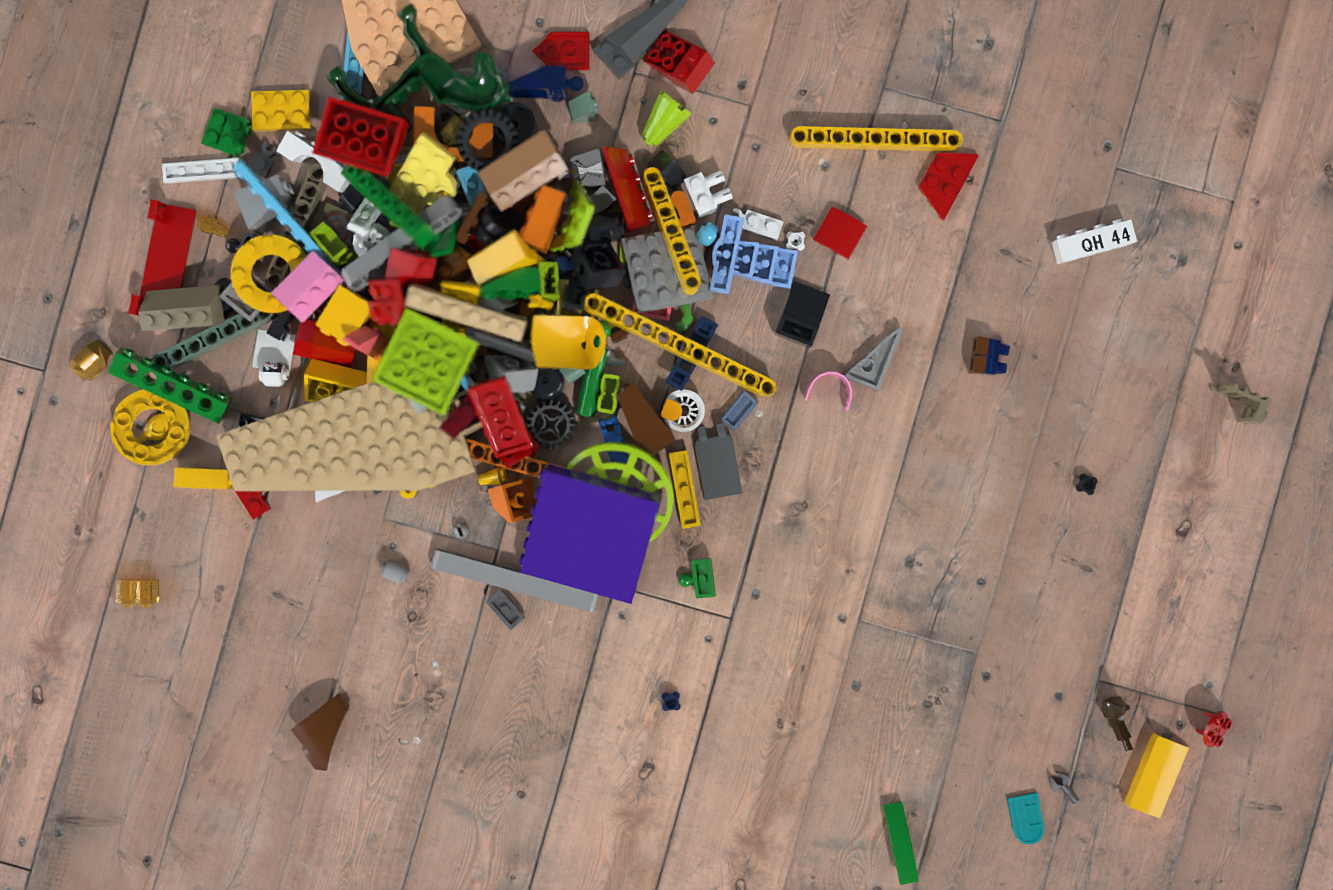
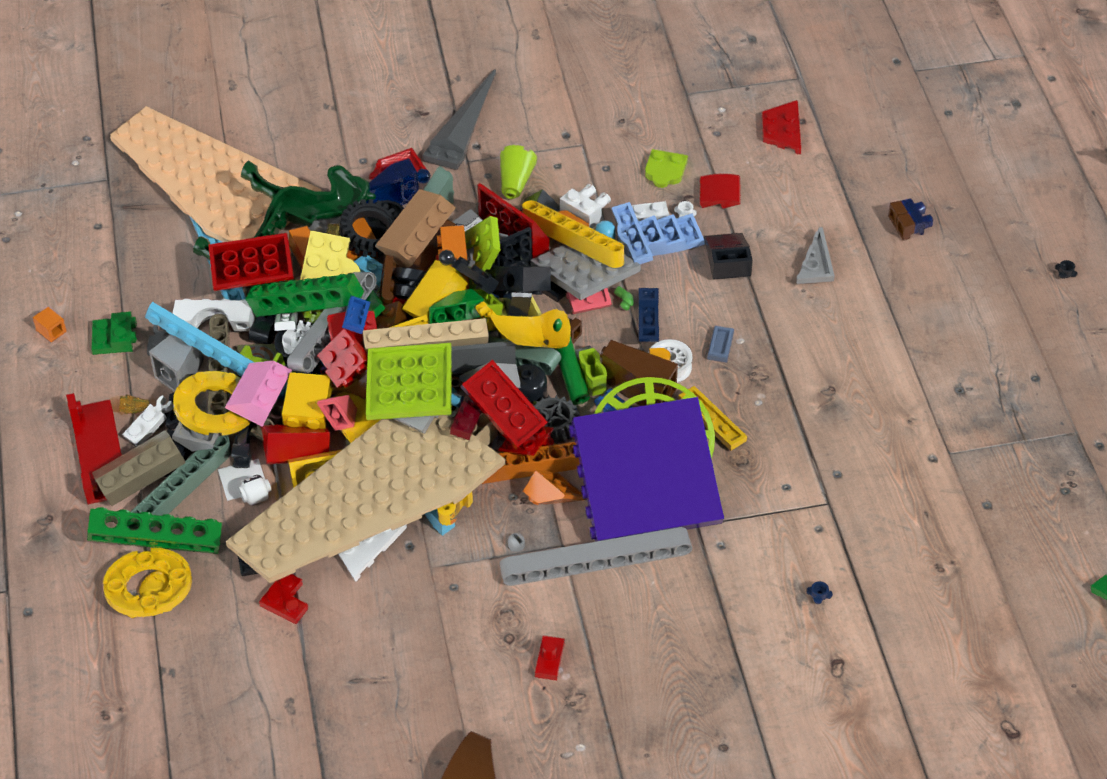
camera: 25 degrees left, 40 degrees down
(90, 360) = (54, 558): pearl gold slope -> none
(137, 592) = (200, 735): clear yellow brick -> none
(174, 94) = (49, 324): none -> orange brick
(199, 170) = (101, 371): white tile -> none
(202, 478) = (226, 599): yellow slope -> none
(215, 254) = (148, 422): none -> white plate
(281, 110) = (161, 293): yellow plate -> none
(394, 571) = (469, 600): light grey brick -> none
(410, 267) = (356, 314): none -> blue plate
(432, 652) = (549, 658): none -> red tile
(496, 476) = (519, 483): yellow cone -> none
(505, 609) = (602, 585): flat silver plate -> none
(538, 257) = (479, 276): none -> black plate
(679, 61) = (502, 132): red slope -> none
(689, 346) = (637, 307): yellow beam -> none
(702, 578) = (777, 477): green plate -> none
(717, 464) = (728, 387): dark grey tile -> none
(808, 177) = (665, 168): none -> lime plate
(841, 377) = (792, 280): bright pink piece -> none
(884, 135) = (703, 121): yellow beam -> none
(1095, 241) = (934, 115): white brick -> none

